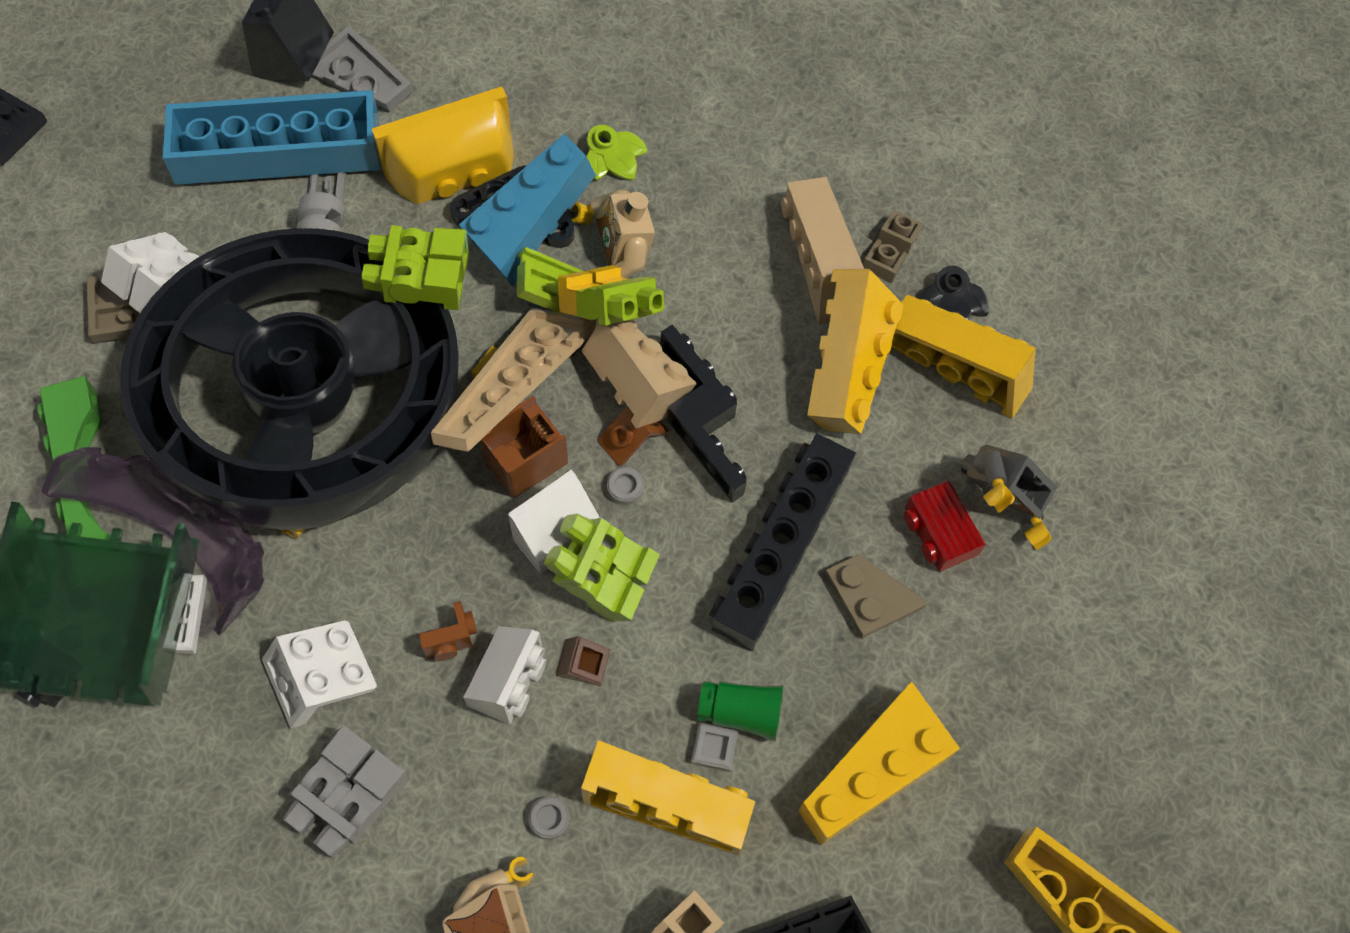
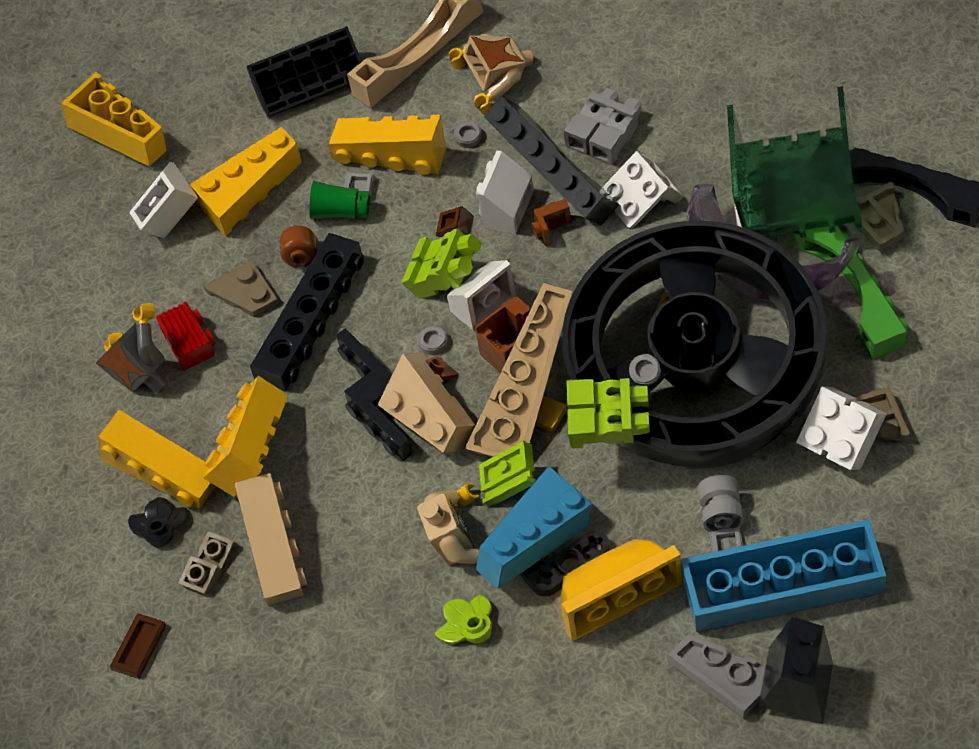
camera: 170 degrees left, 10 degrees down
(362, 322) = (644, 370): none -> light grey tile
(471, 791) = (550, 162): none -> black arch
(608, 296) = (442, 434): lime hips -> none
(799, 643) = (298, 244): none -> dark orange head
(960, 172) = (138, 646): none -> reddish brown tile
(1000, 737) = (164, 202): none -> white slope

